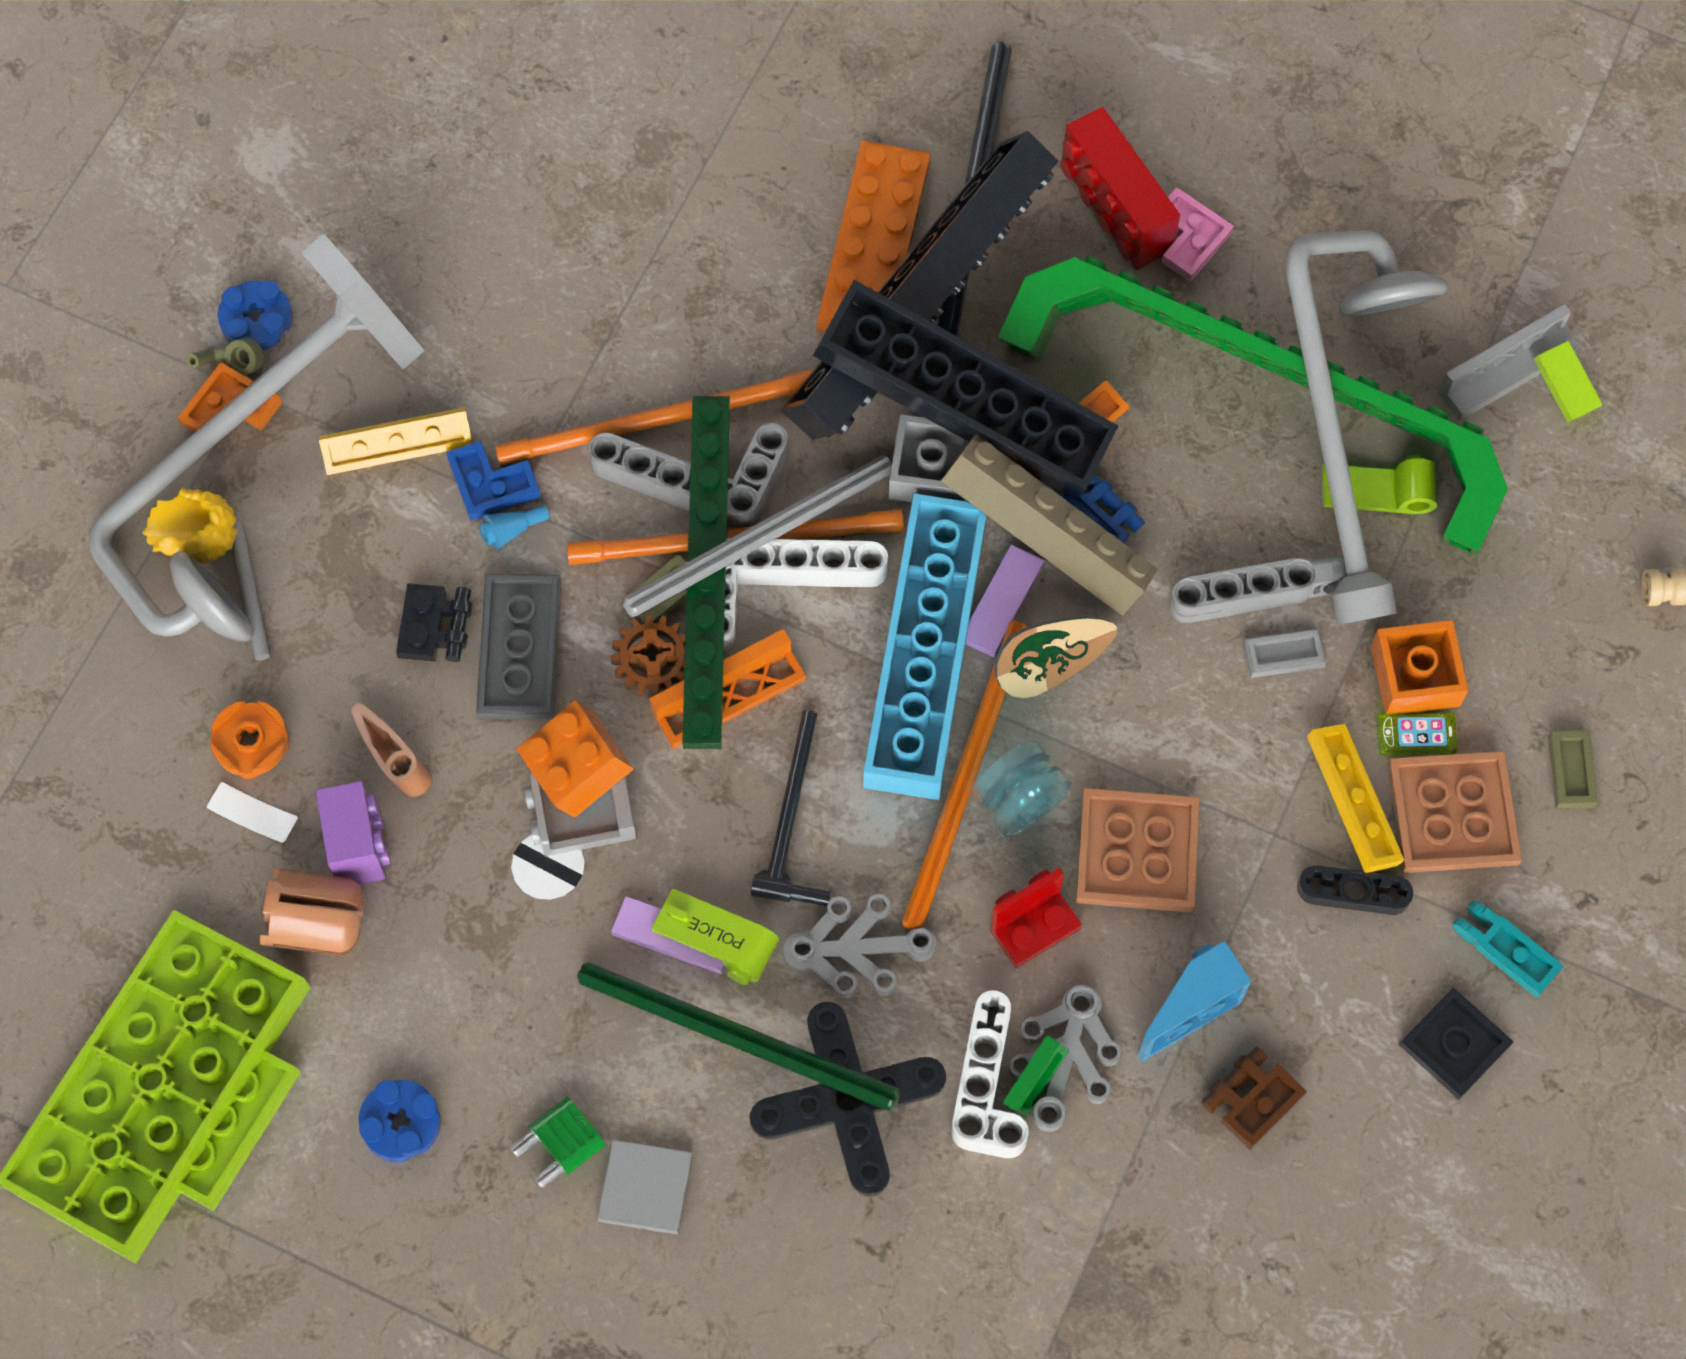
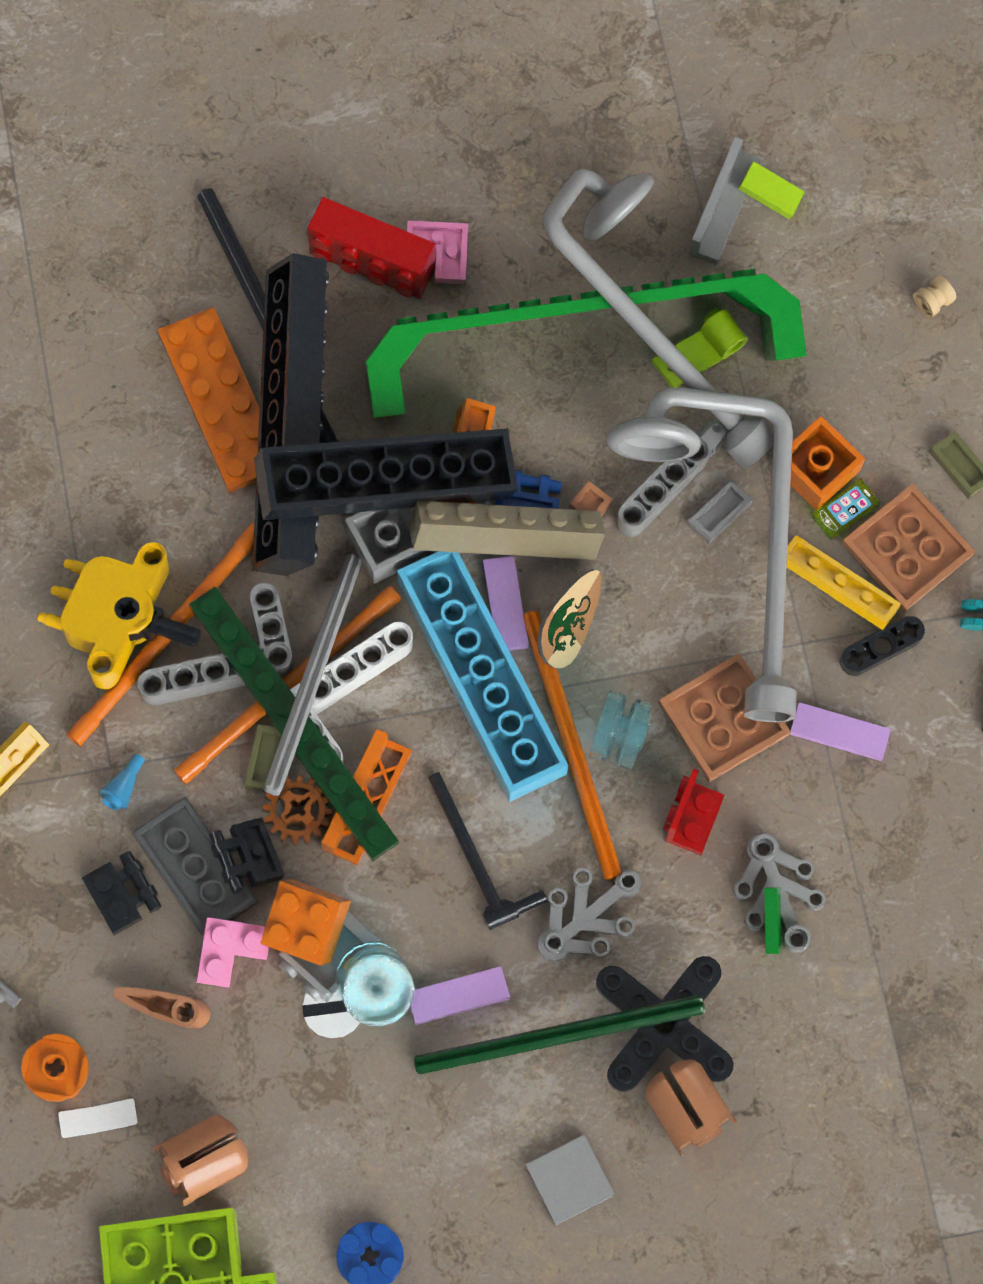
camera: 40 degrees left, 5 degrees up
(353, 832) = (187, 1083): medium lavender brick -> none
(486, 731) = (221, 942): none -> bright pink plate
(490, 490) = (83, 771): blue plate -> none
(565, 1137) = (490, 1185): green piece -> none
(574, 868) = (375, 984): none -> clear light blue wheel
(584, 667) = (255, 851): none -> black plate
(625, 364) = (116, 610): none -> yellow piece
(734, 940) = (490, 973): lime door -> none
(811, 1194) = (674, 1114): none -> nougat cylinder
(987, 1072) = (740, 939): white beam -> none
(1163, 556) = (591, 499): none -> nougat plate
(1205, 991) = (839, 783): dark azure slope -> none
(1249, 943) = (840, 731): none -> lavender tile
(1263, 1106) = (928, 837): reddish brown plate -> none
(1269, 538) = (667, 440): none -> light grey piece

